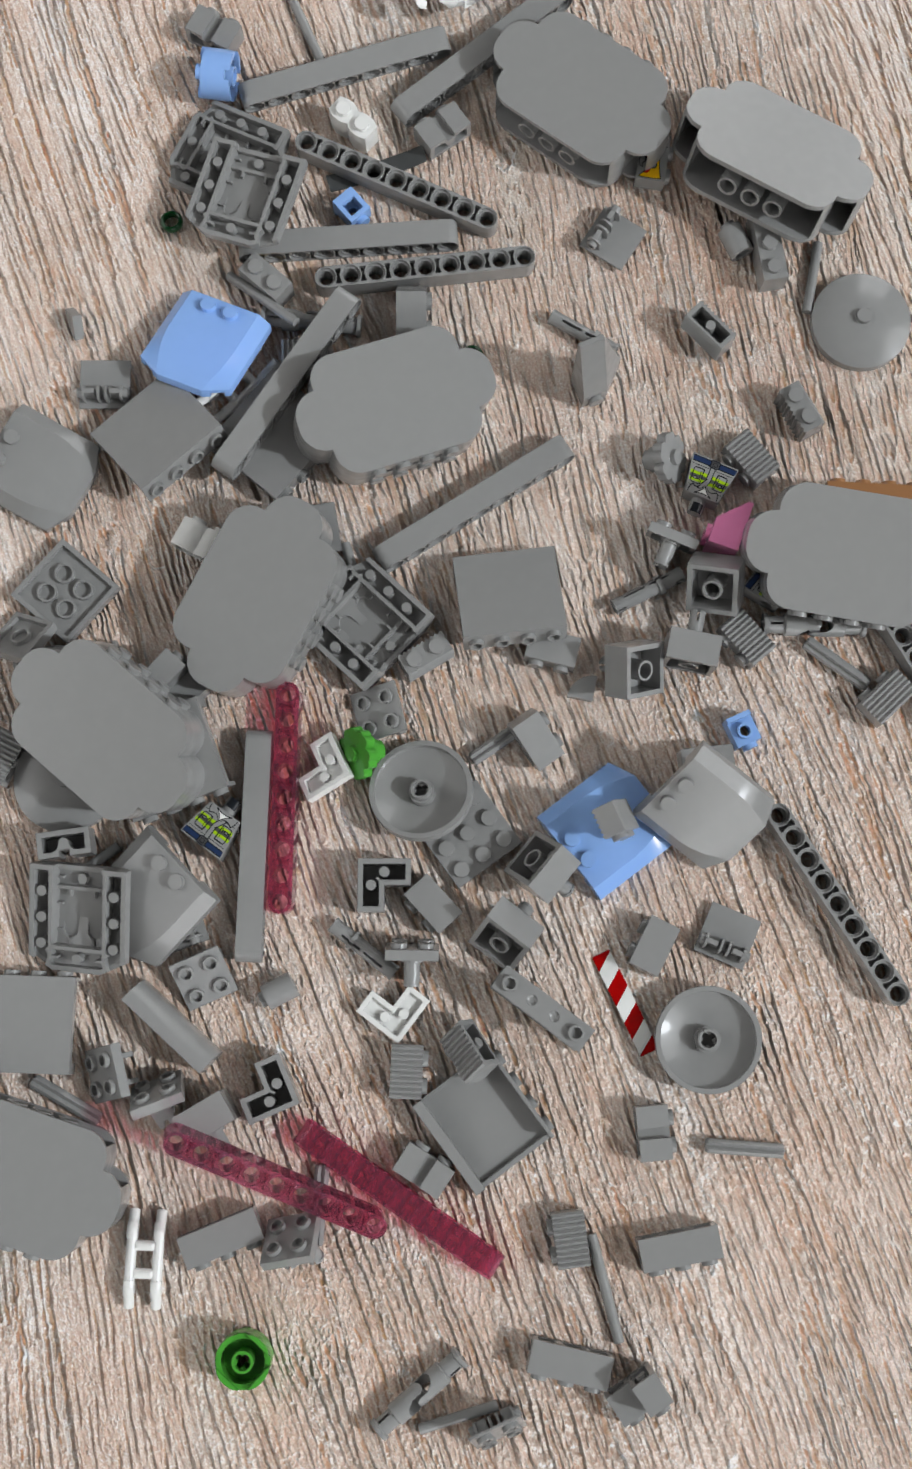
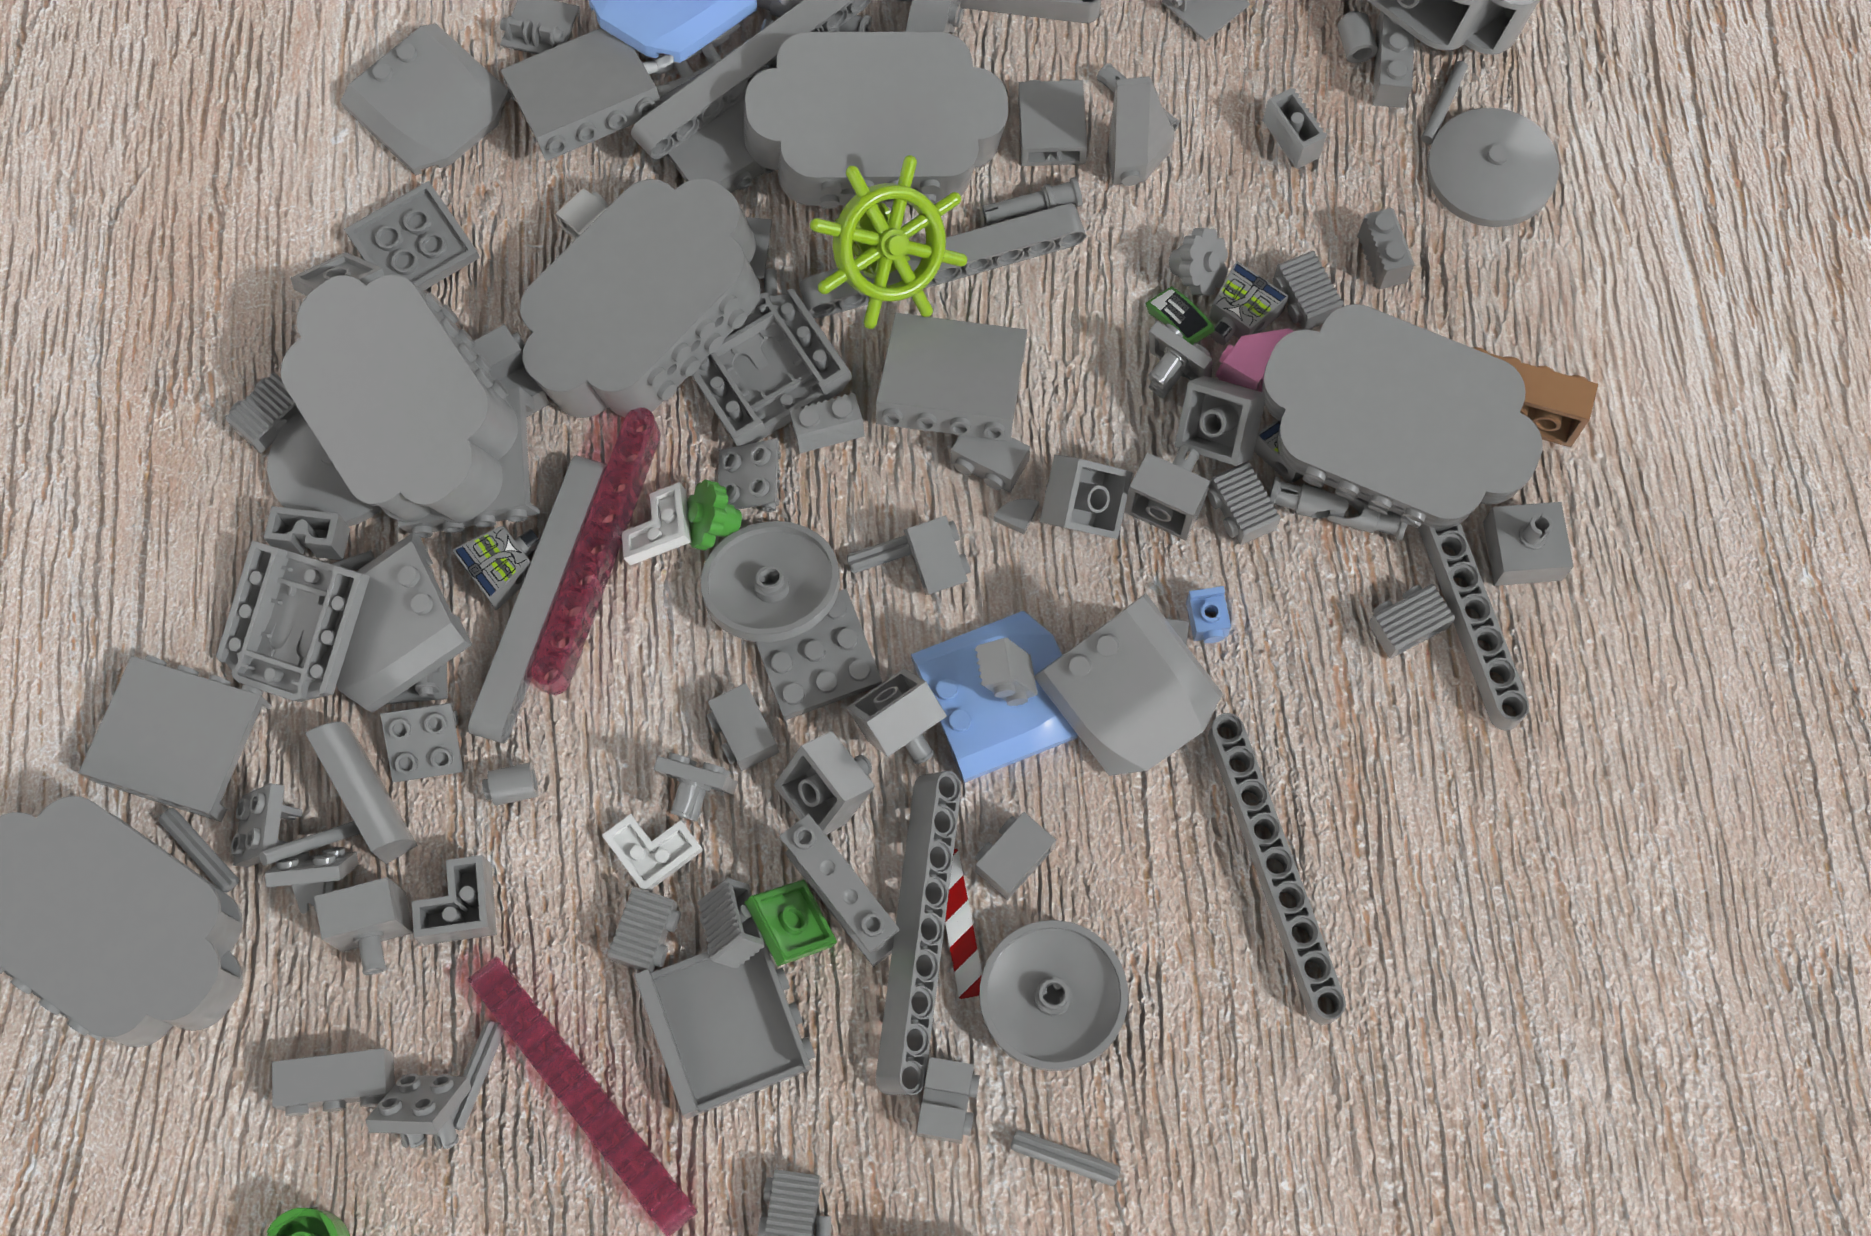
camera: 20 degrees right, 10 degrees down
(134, 1245) = (230, 1103): white piece -> none
(149, 1077) = (308, 843): none -> light grey bar
(268, 1170) = (403, 1014): clear pink beam -> none
(363, 948) = (629, 749): light grey pin -> none
(374, 876) = (683, 671): light grey brick -> none
(424, 1168) = (626, 1064): light grey brick -> none
(431, 513) = (883, 245): none -> lime piece
(510, 1038) = (790, 922): none -> bright green tile
(524, 369) = (1052, 122): none -> light grey brick
(538, 433) = (1031, 203): none -> light grey pin
(602, 1014) = (919, 942): none -> light grey beam
(644, 592) = (1124, 417): light grey pin -> none
(661, 504) = (1176, 309): none -> slope
(727, 935) = (1119, 870): light grey hinge -> none
(836, 663) = (1356, 563): light grey axle -> none

